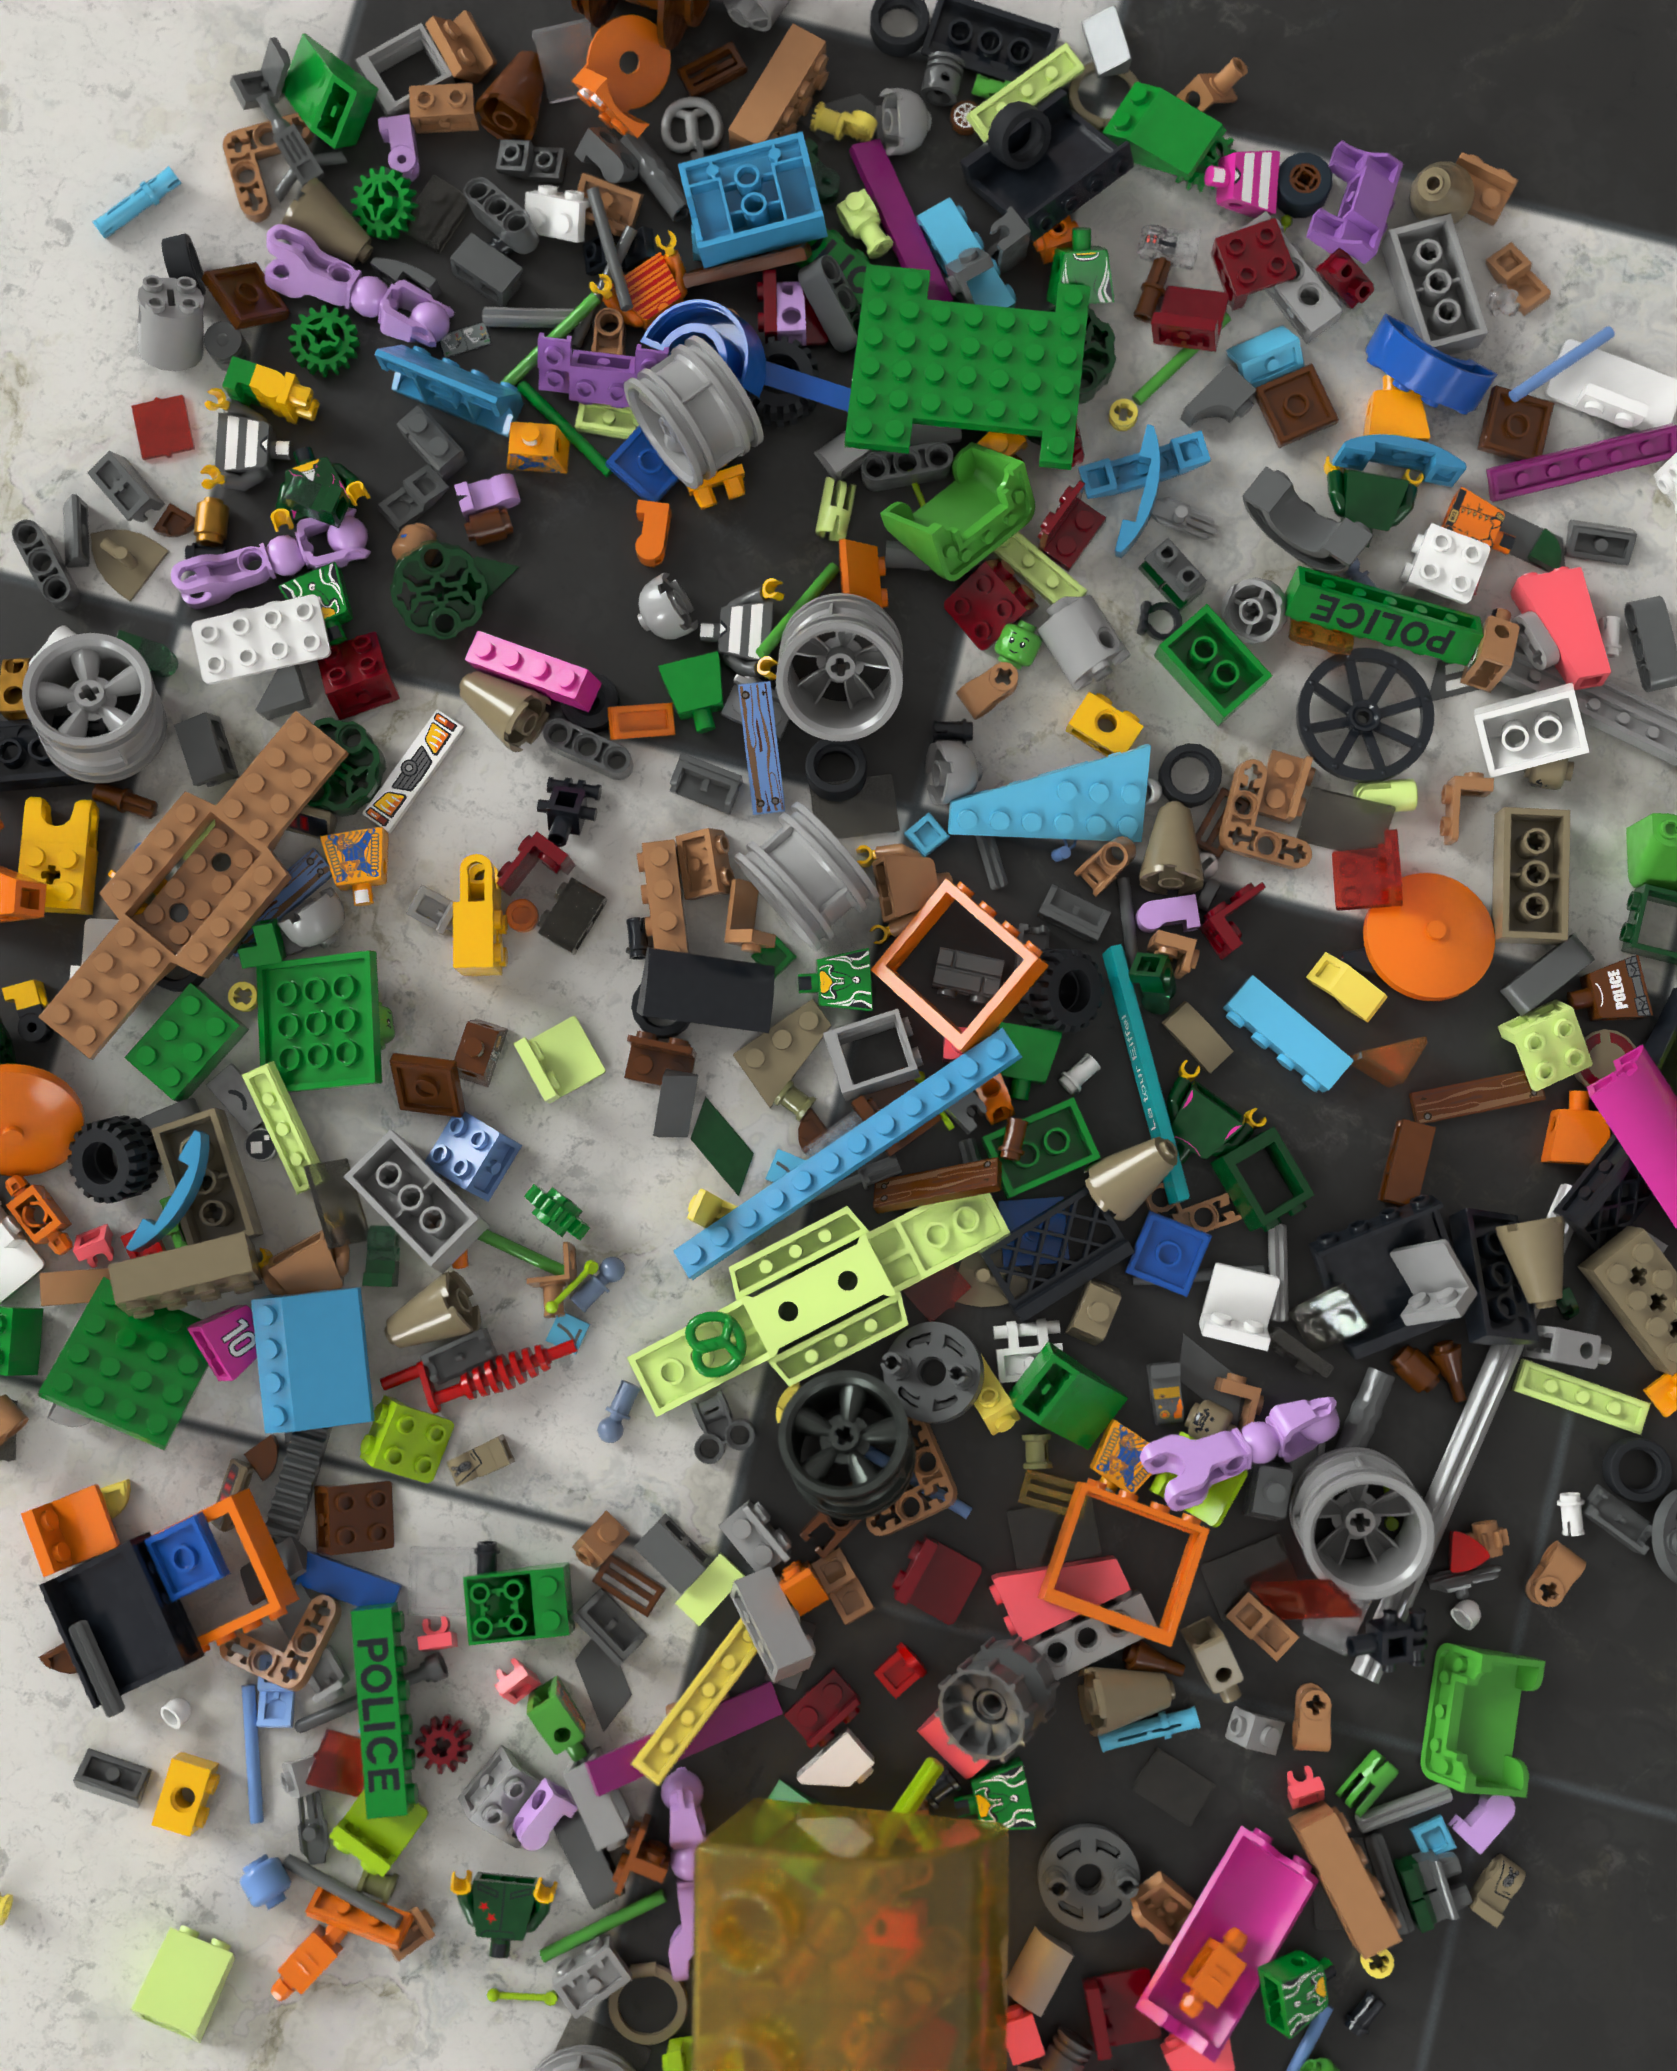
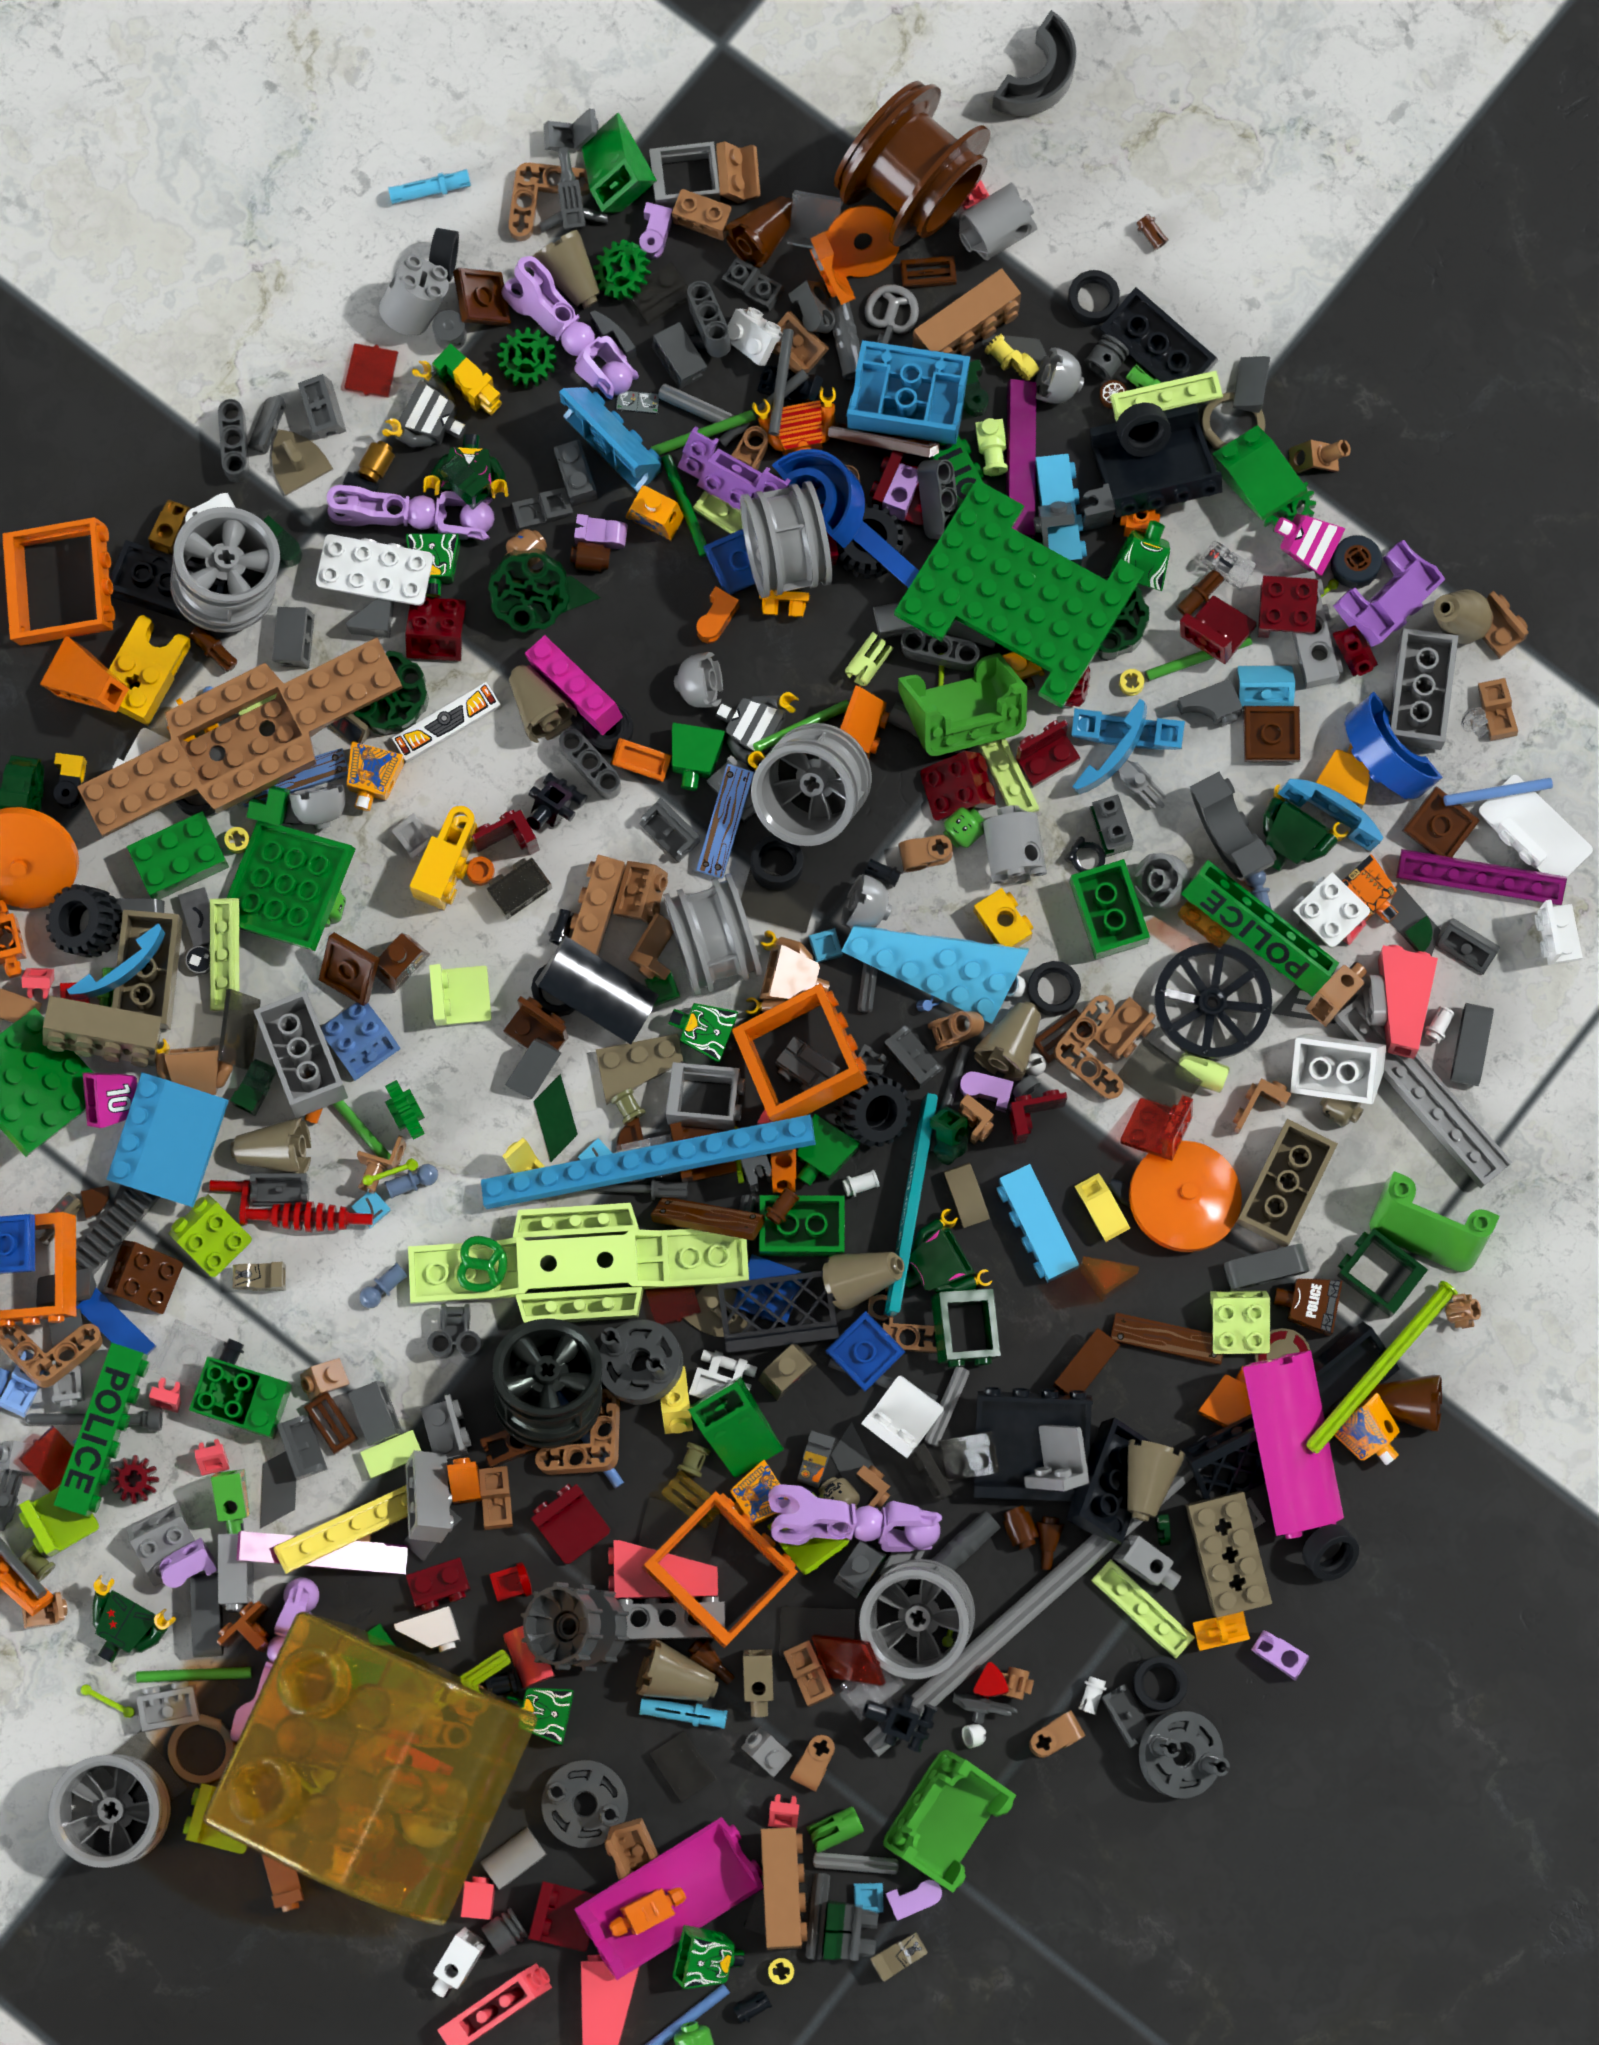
camera: 25 degrees right, 5 degrees down
(174, 522) = (347, 448): reddish brown tile -> none

